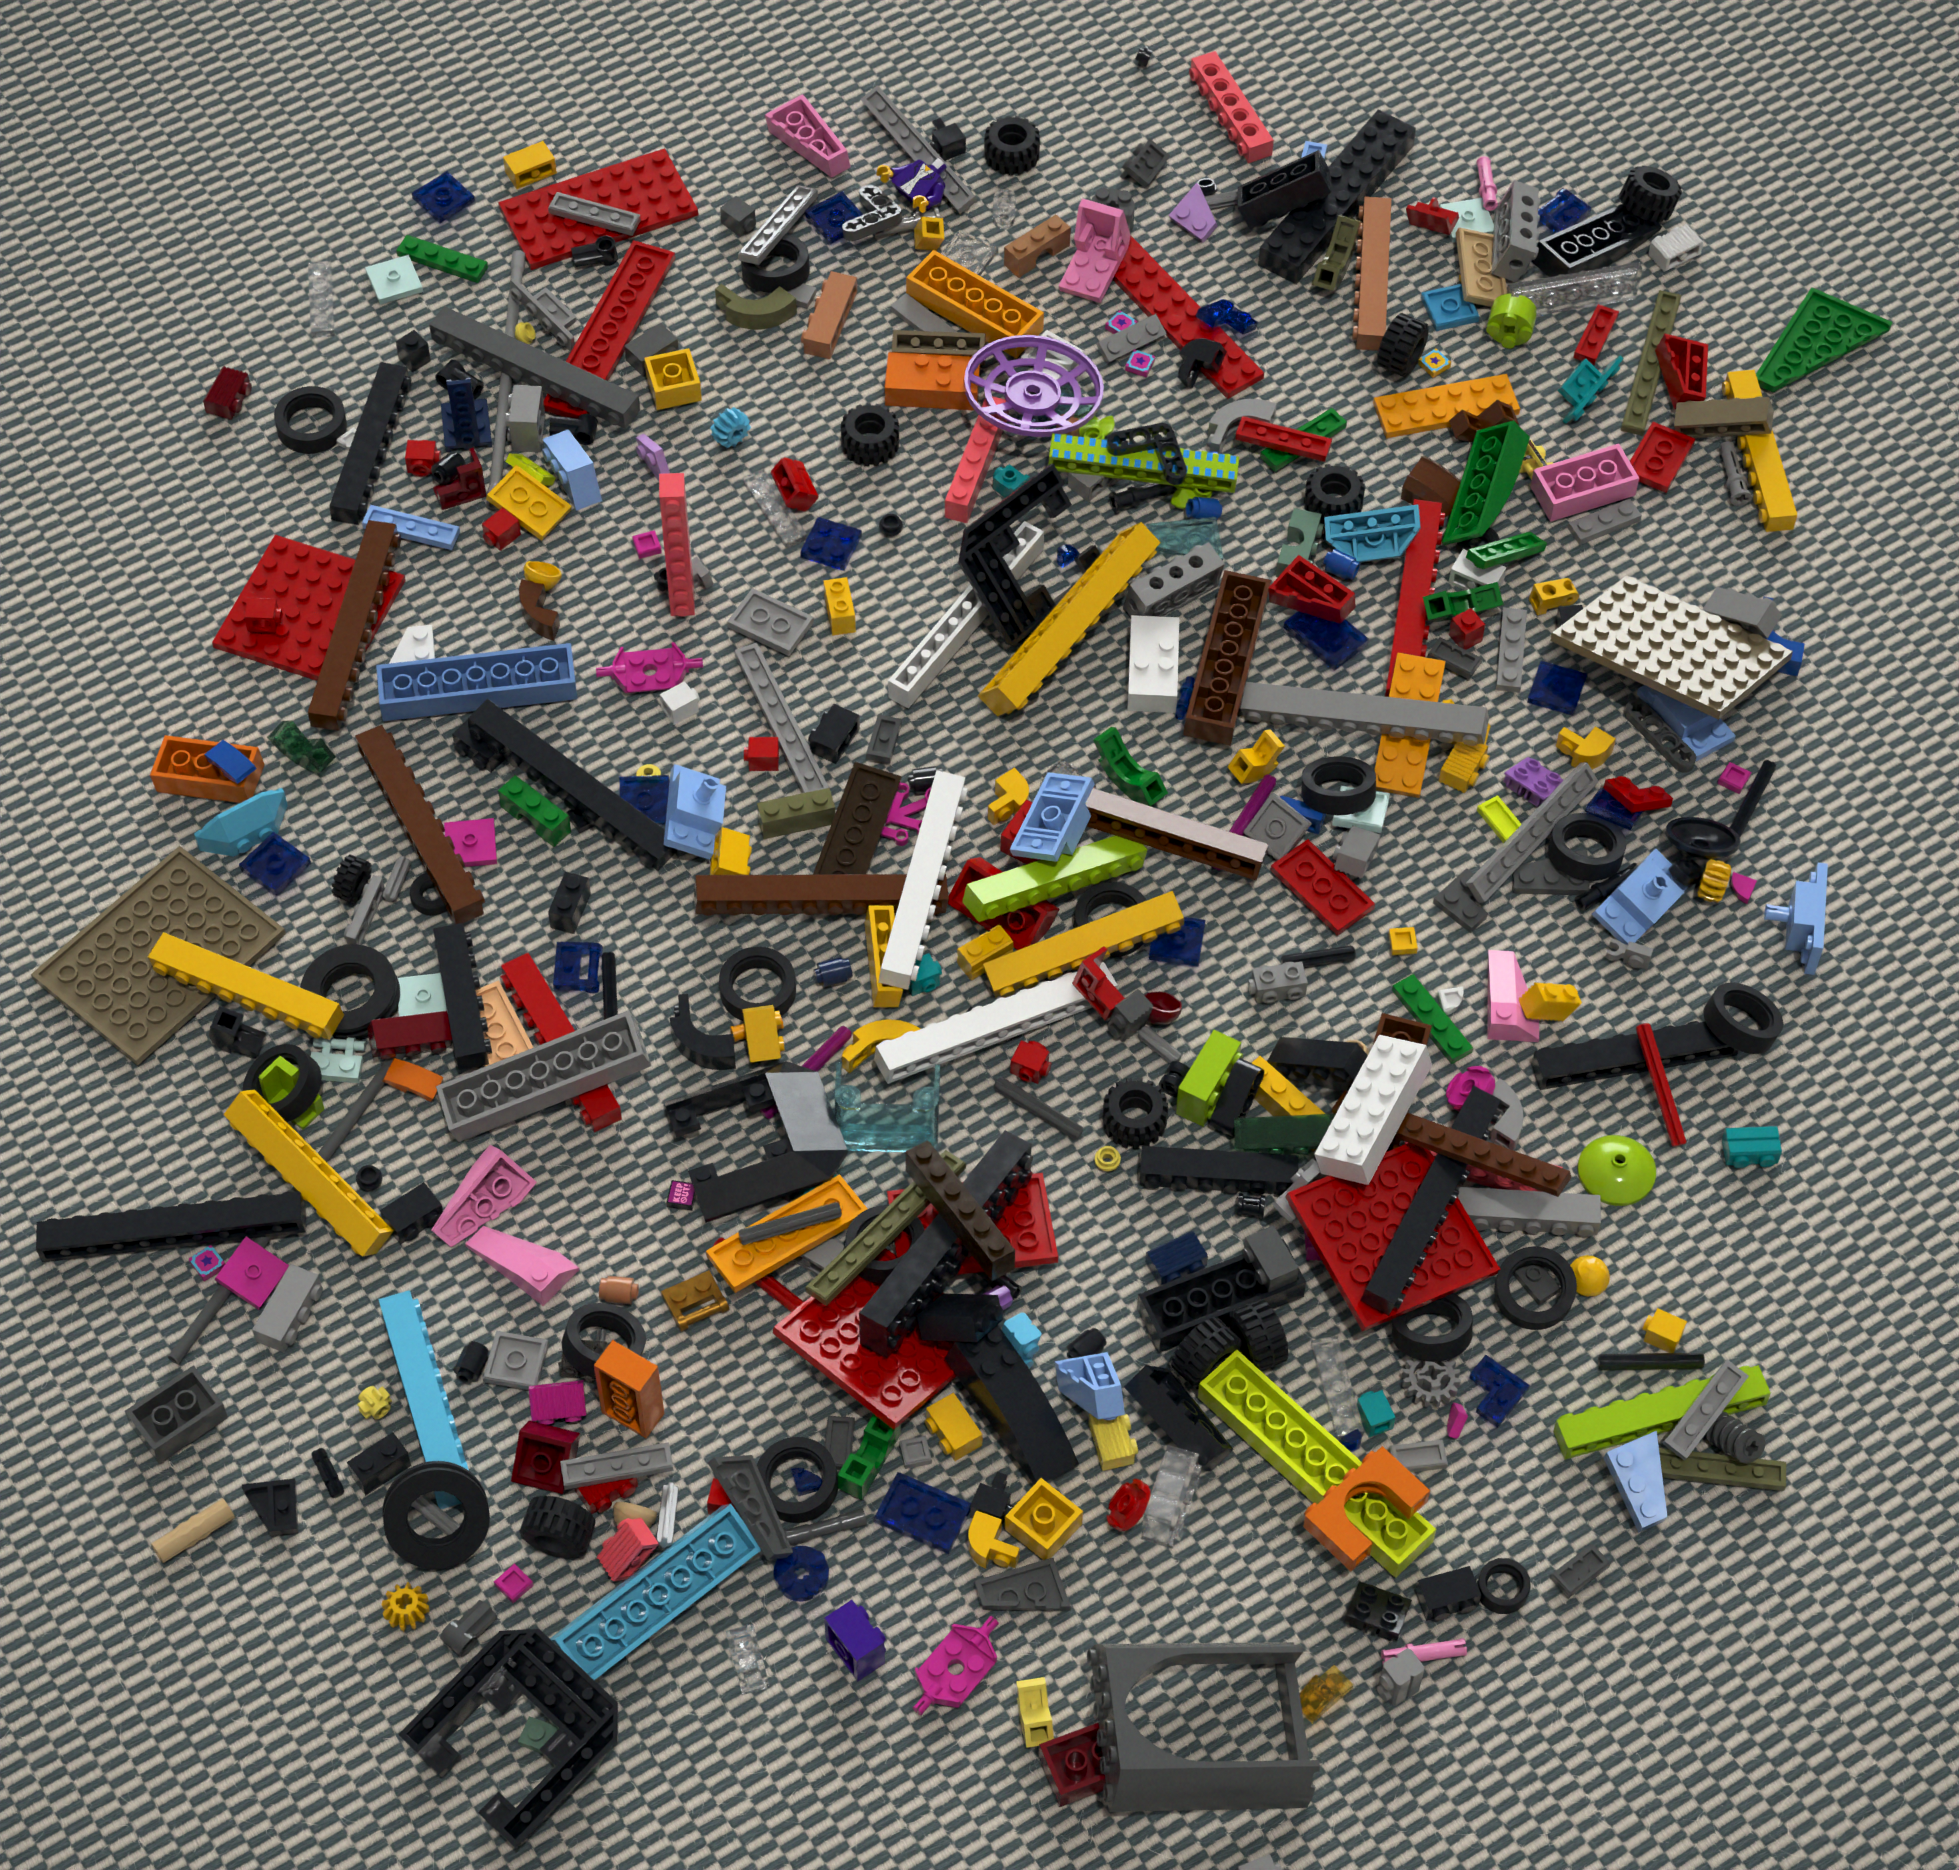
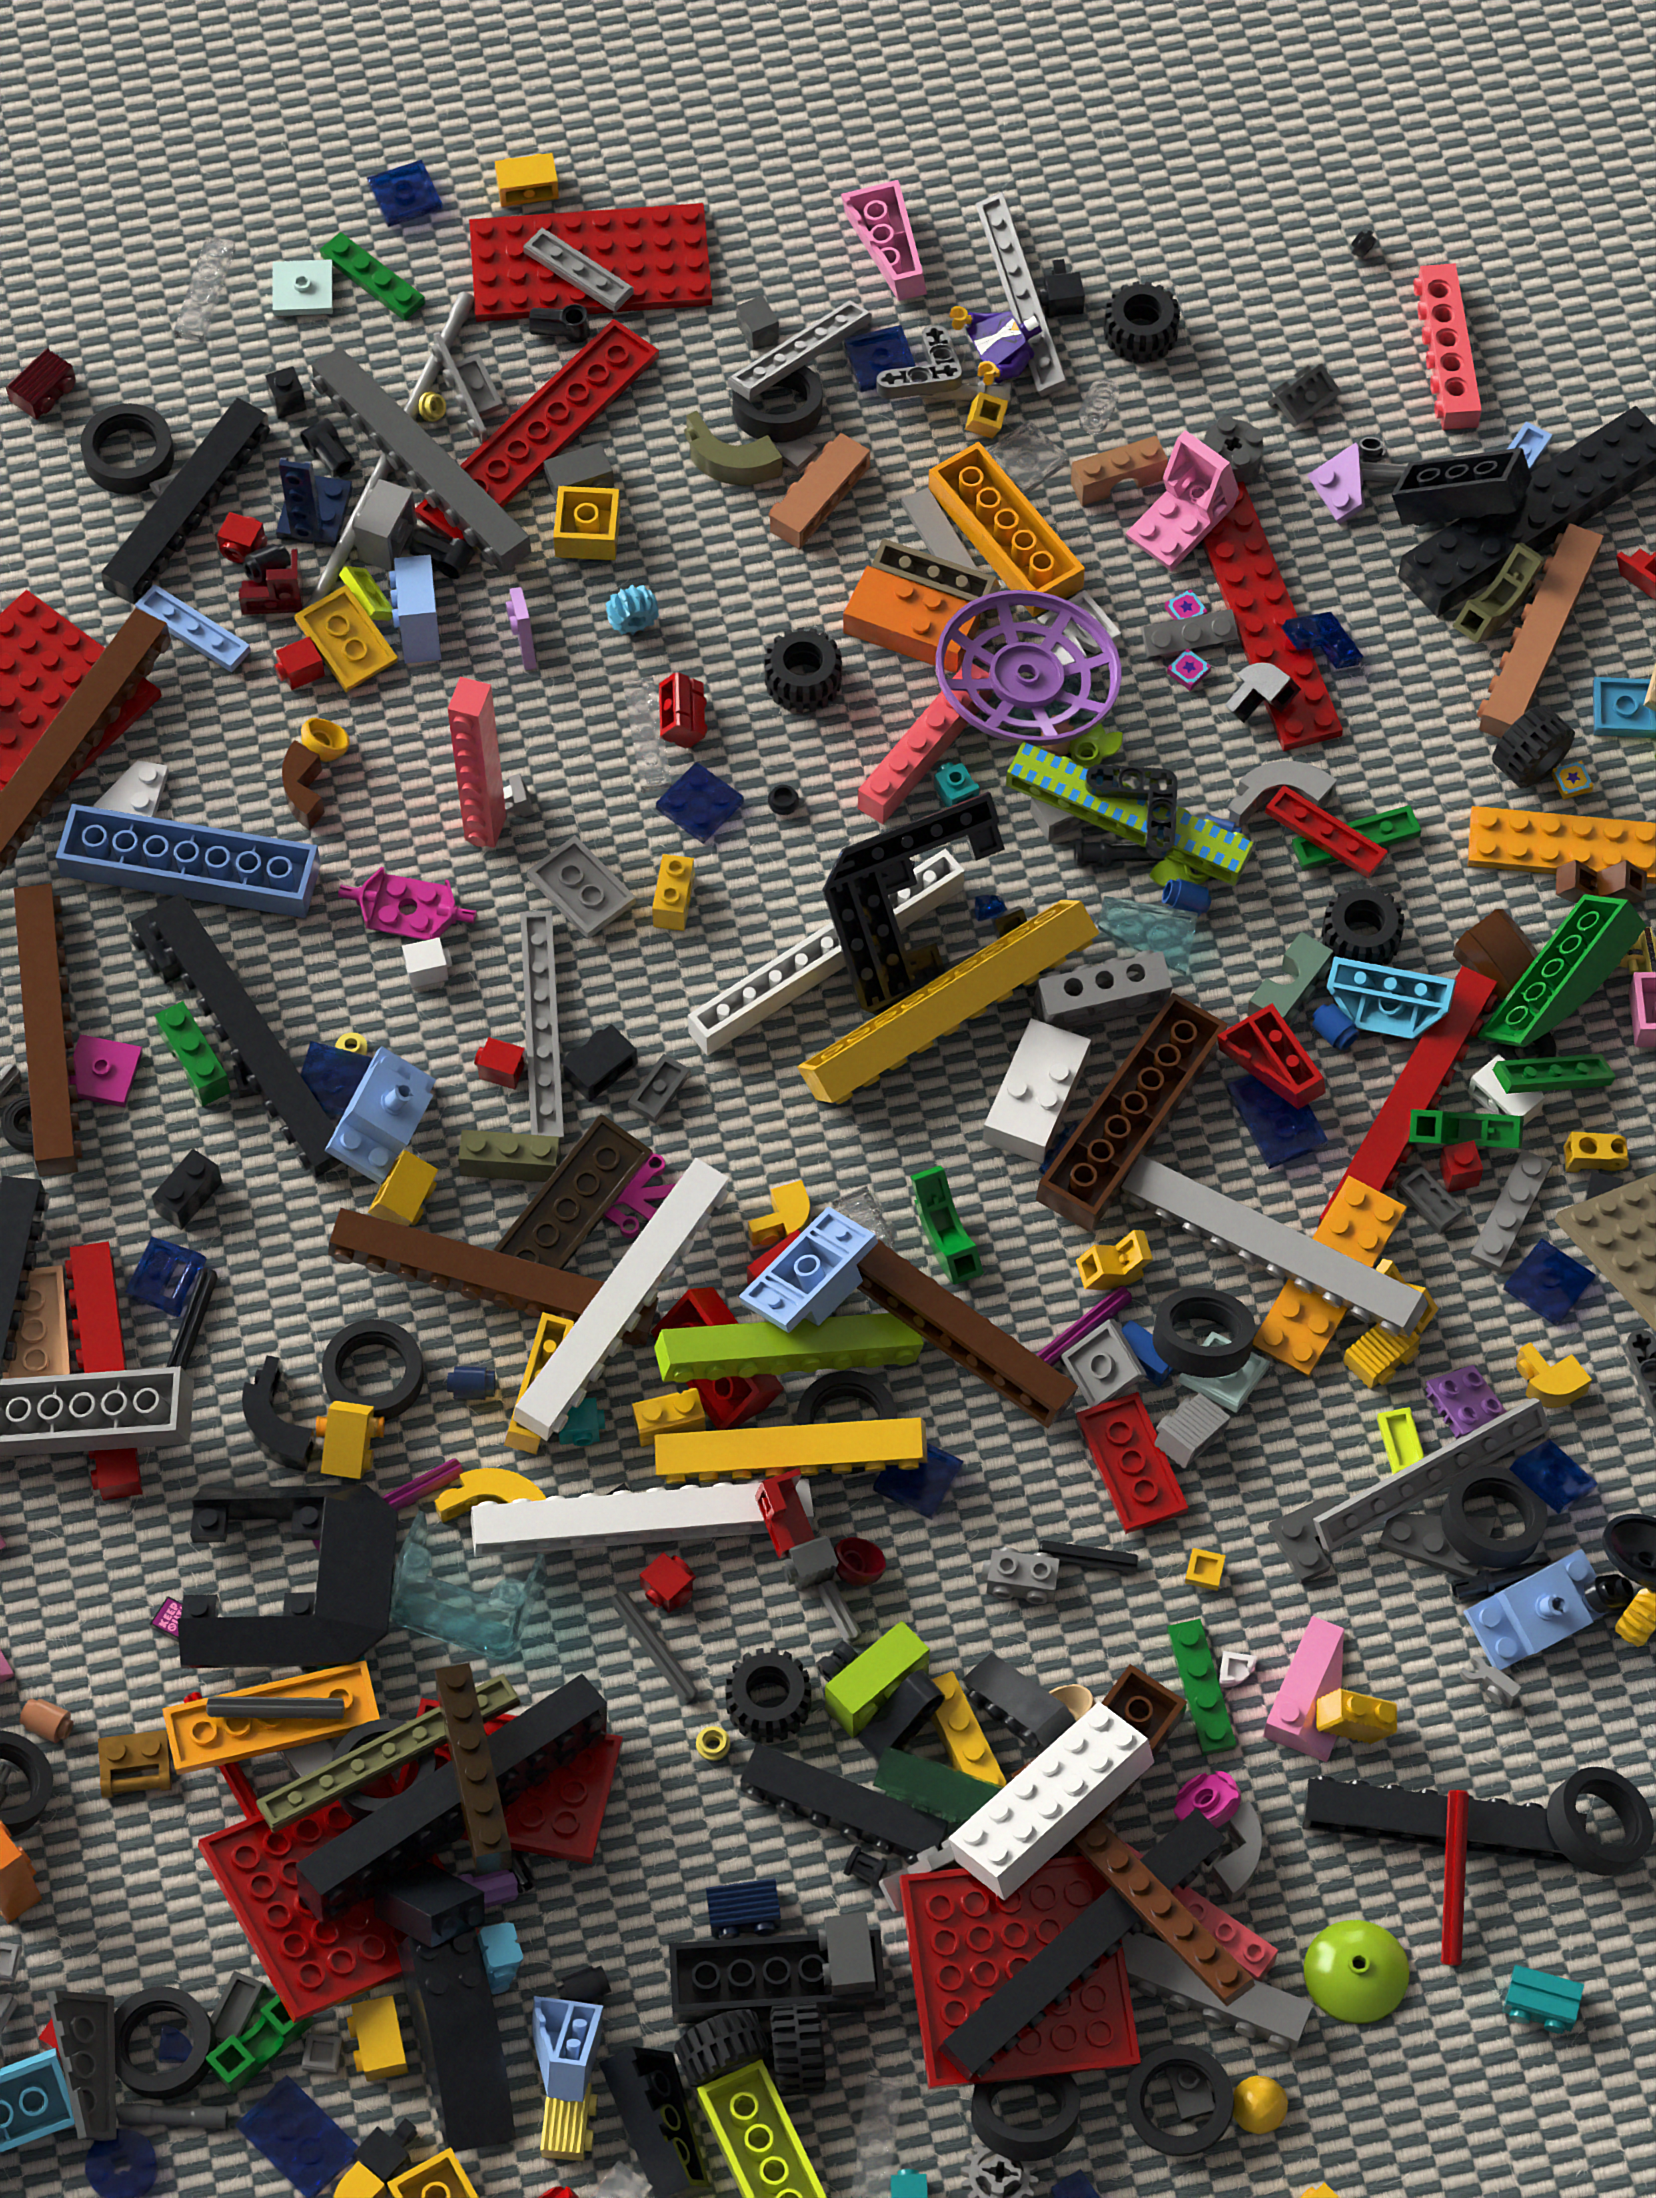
camera: 20 degrees right, 5 degrees up
(922, 778) = (683, 1154): black brick -> none
(1635, 798) = (1587, 1471): red plate -> none

